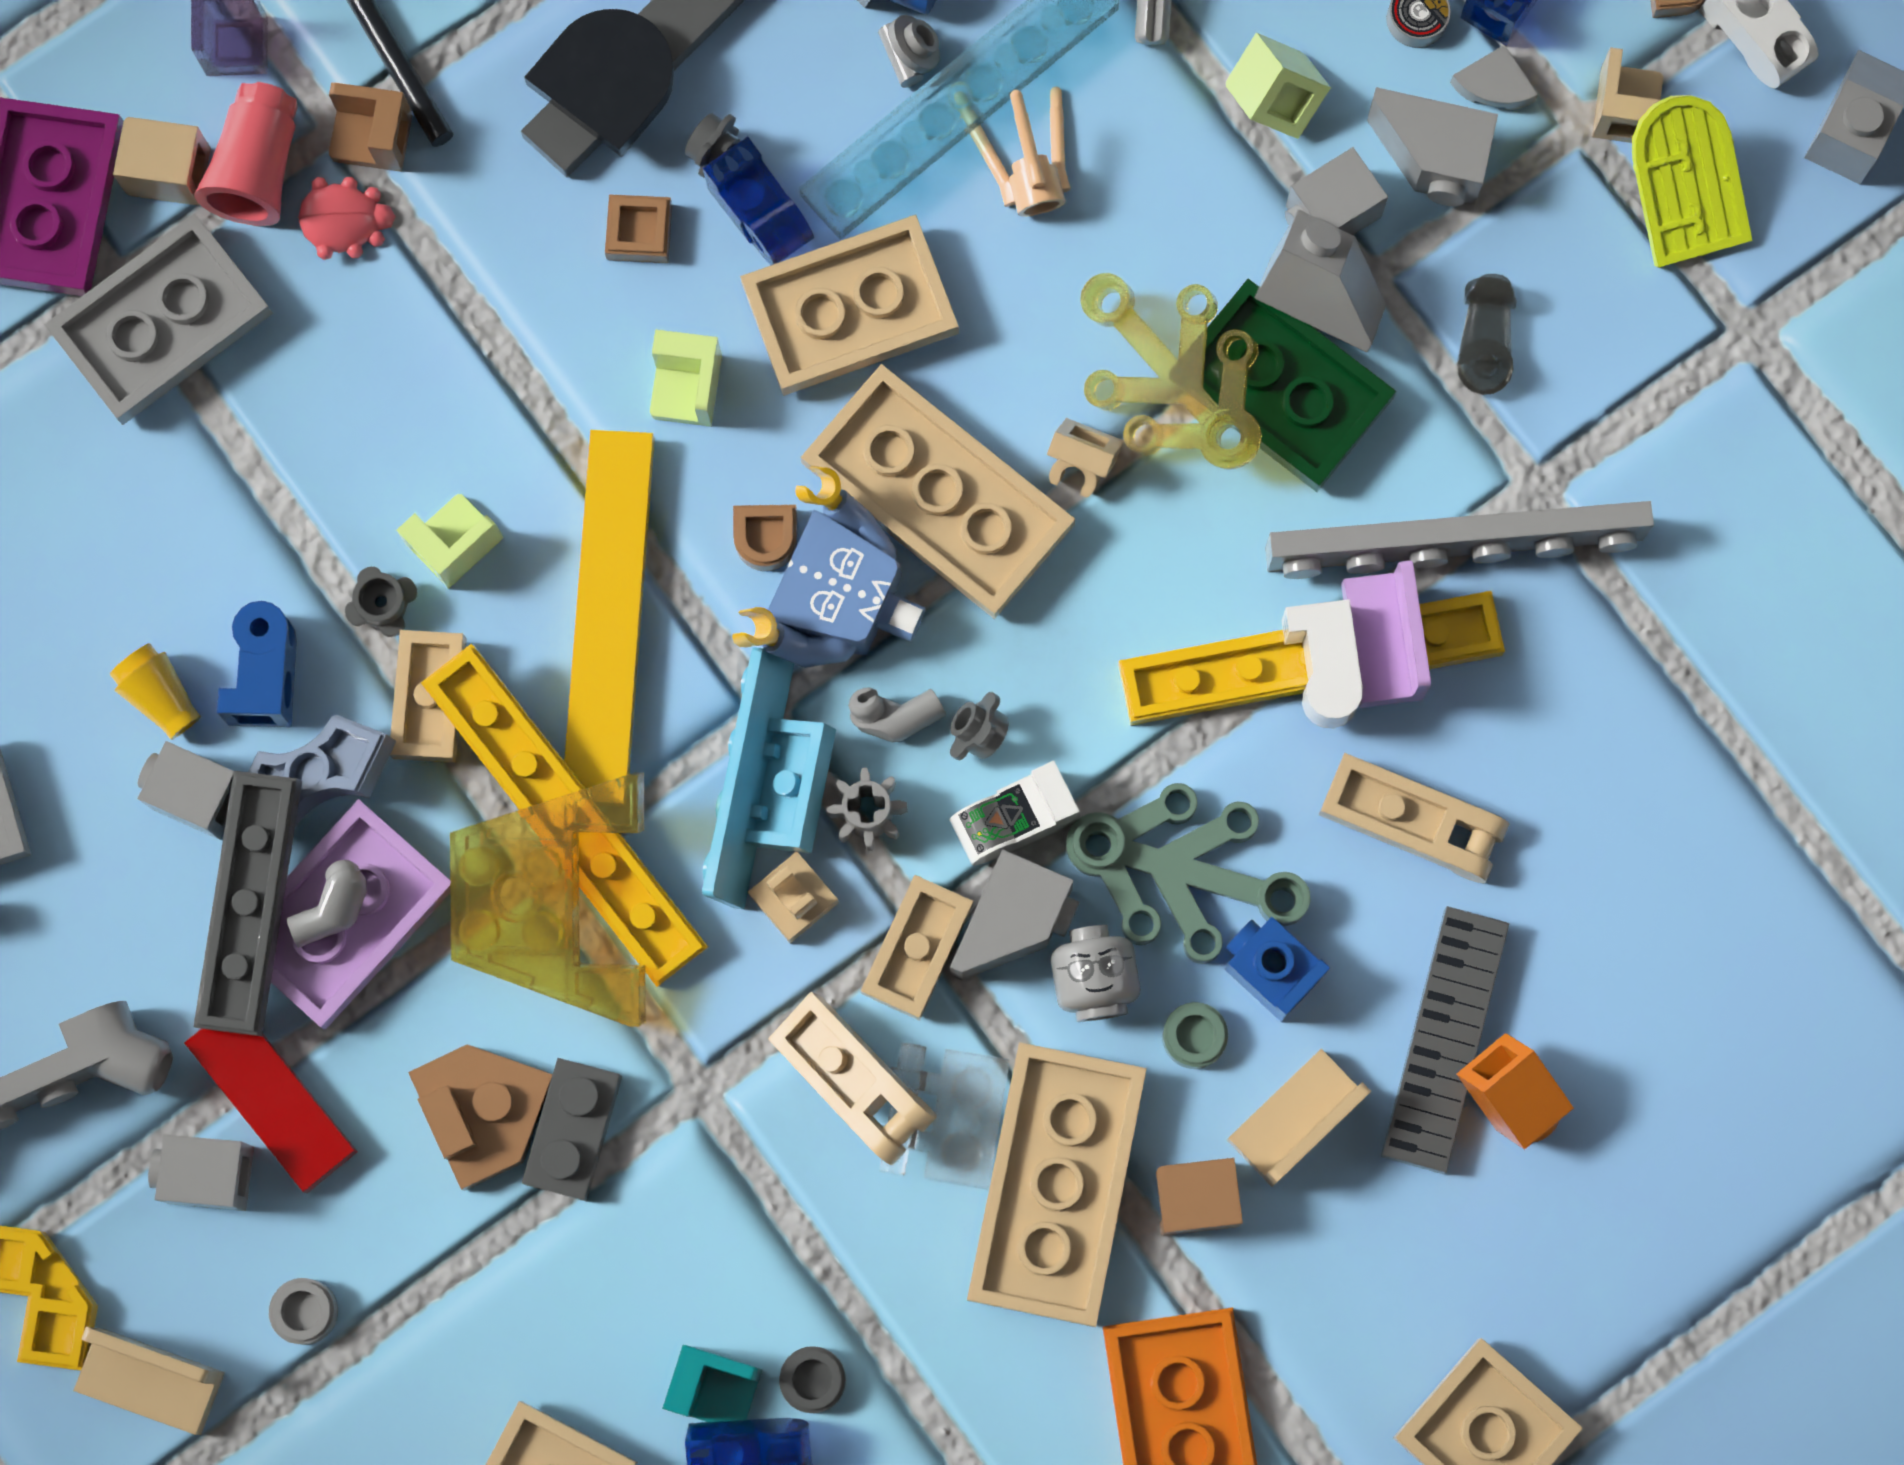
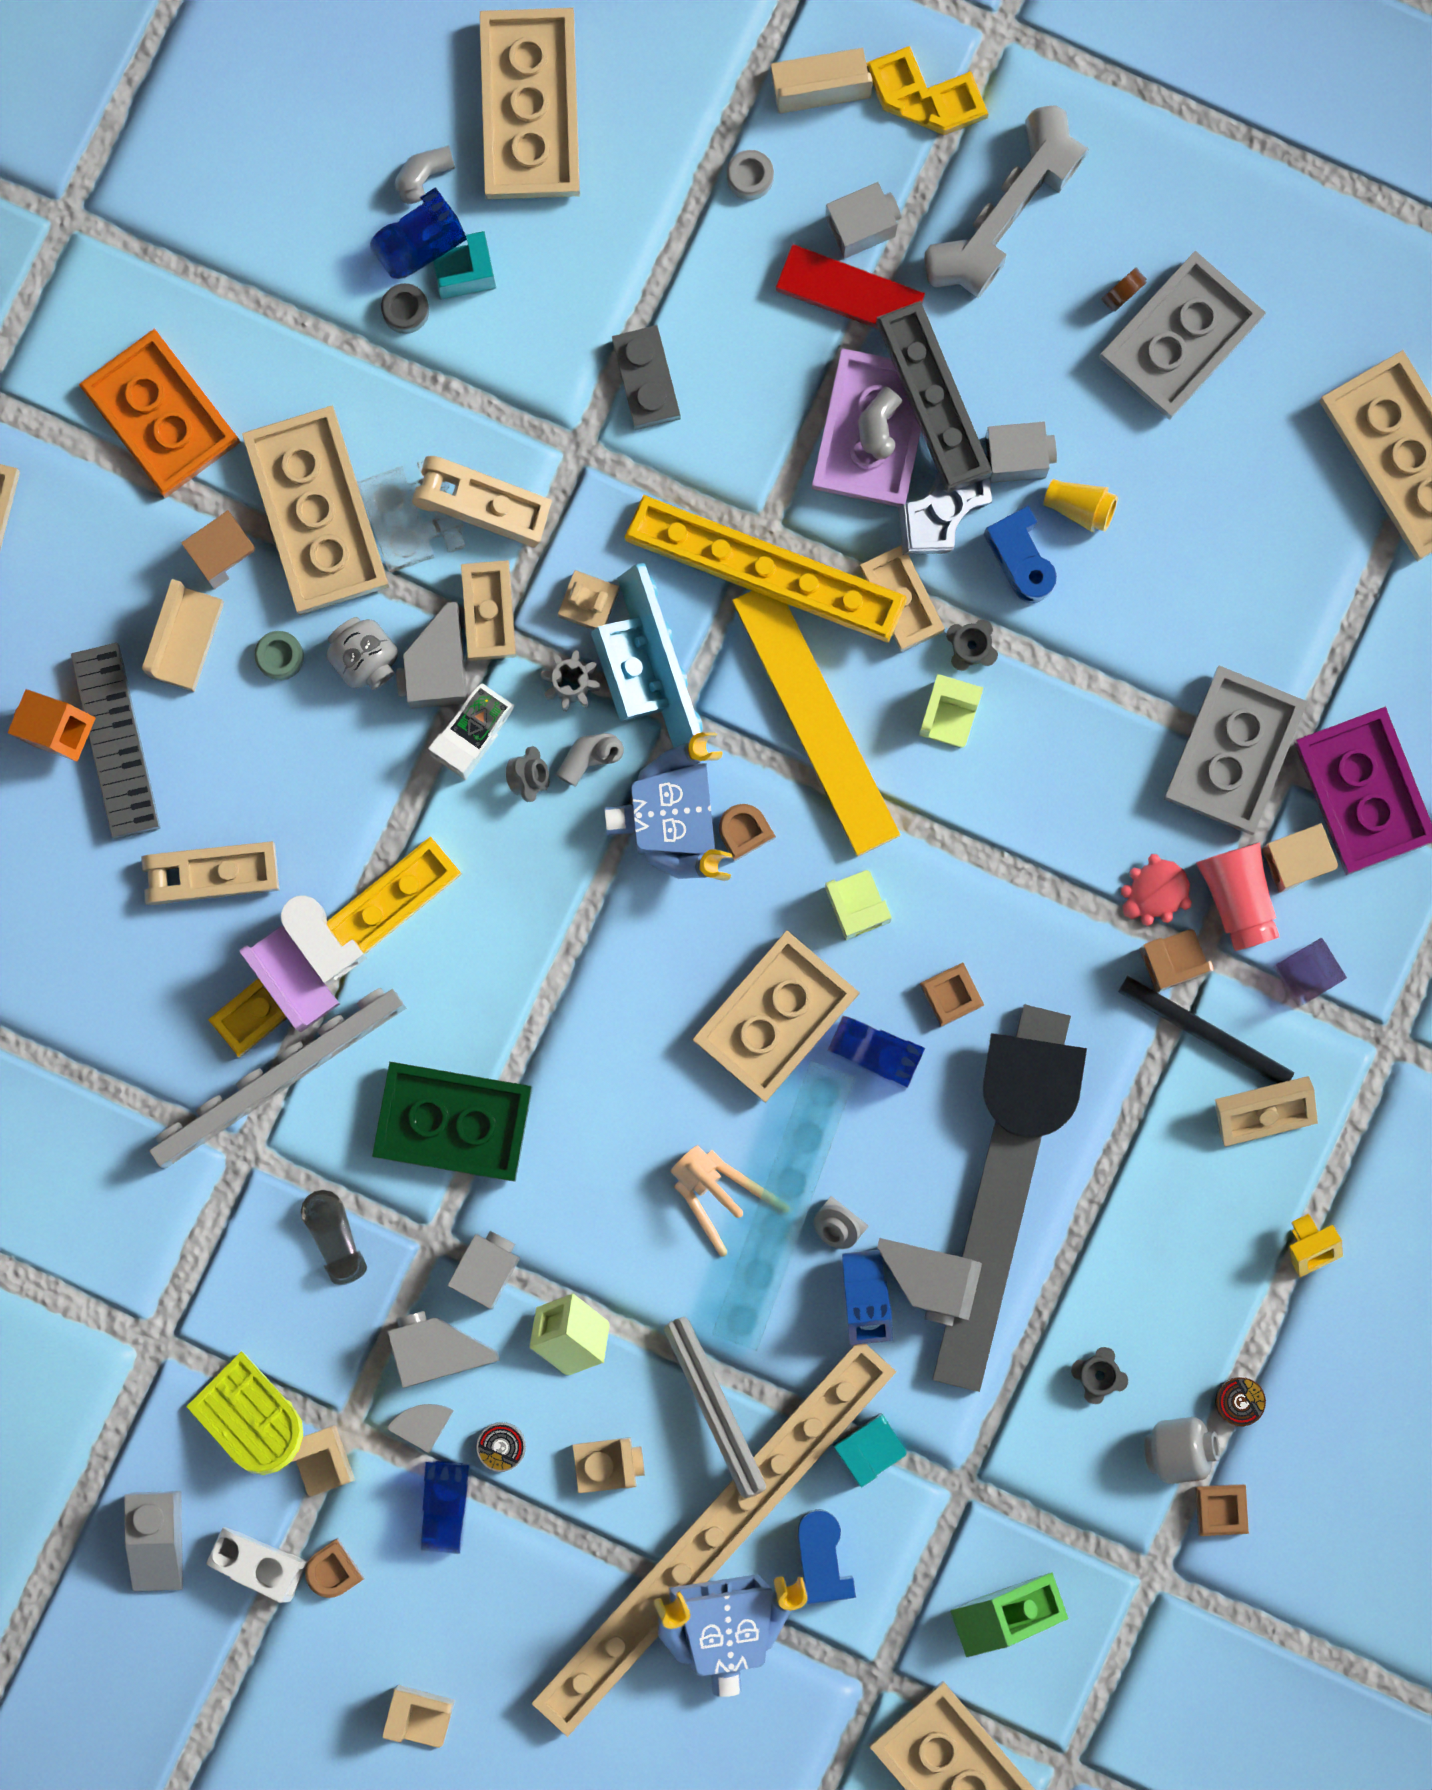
camera: 150 degrees right, 5 degrees up
(480, 1110) = (711, 356): medium nougat plate -> none
(520, 898) = (761, 498): clear yellow wing -> none
(711, 140) = (932, 1078): dark grey plate -> none
(940, 491) = (644, 920): tan plate -> none
(1085, 449) = (560, 1000): tan tile -> none
(1176, 868) = (348, 757): sand green plant -> none
(1179, 379) = (523, 1082): clear yellow plant -> none
(1280, 990) = (261, 740): blue brick -> none
(1323, 281) = (460, 1202): light grey slope -> none

